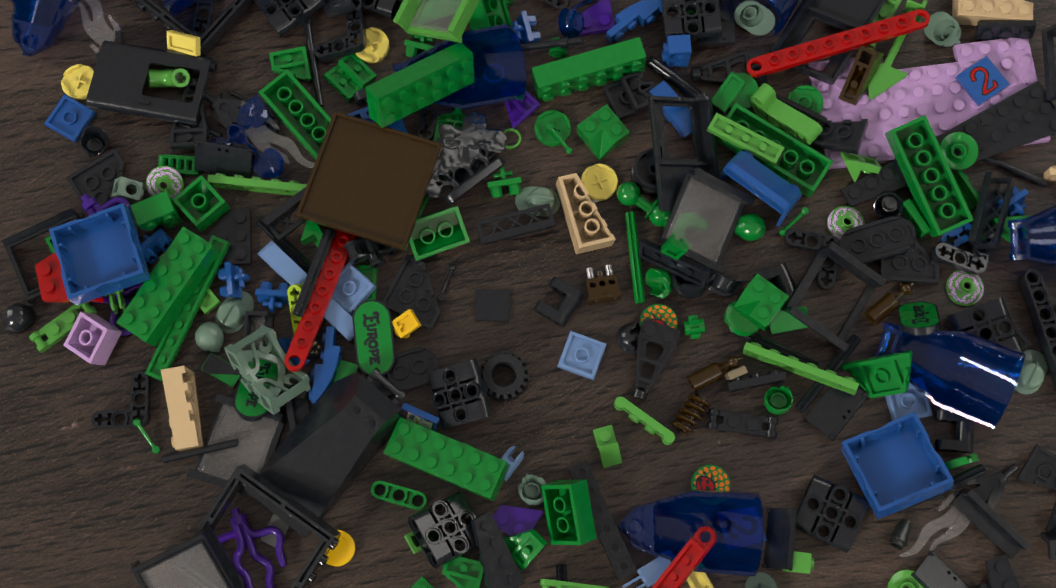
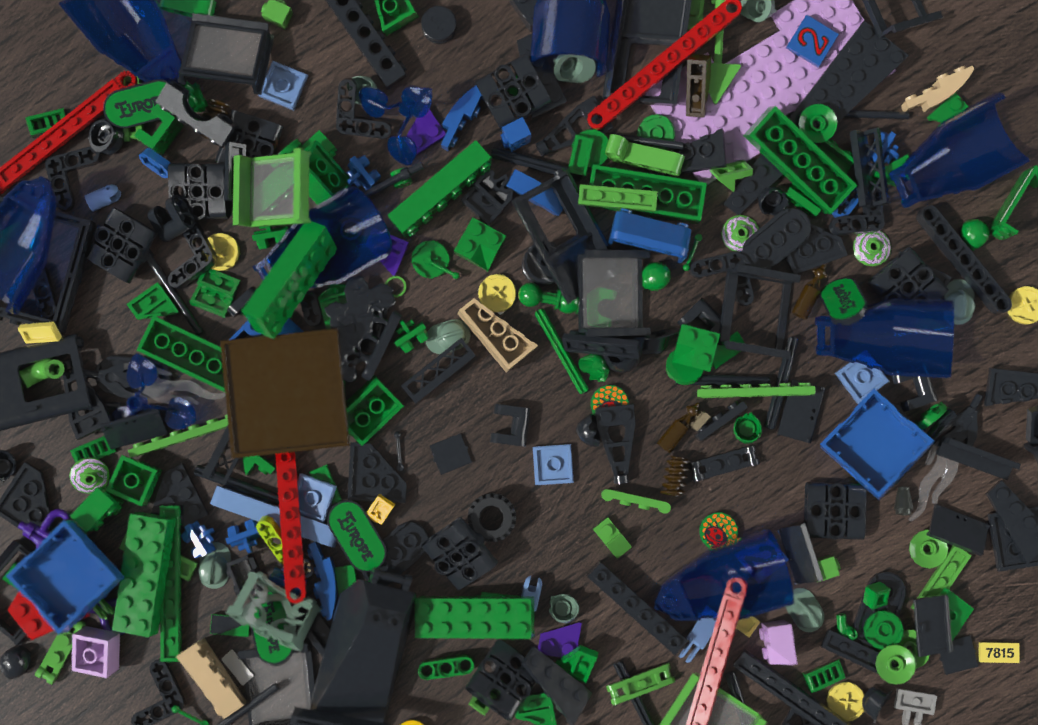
camera: 30 degrees left, 10 degrees up
(119, 189) = (49, 497): sand green brick -> none
(154, 244) = (107, 538): blue hips -> none
(209, 337) = (203, 600): sand green hair -> none
(210, 411) = (237, 667): none -> white sticker
(313, 273) = (273, 502): black axle -> none
(363, 250) = (308, 459): black axle -> none
(419, 417) = (432, 588): blue tile -> none
(568, 512) = (605, 617): green brick -> none
(604, 293) = (545, 400): dark brown piece -> none
(674, 248) = (597, 336): green tile -> none
(694, 326) = (643, 394): green gear -> none
(882, 374) = (831, 365): green wing -> none

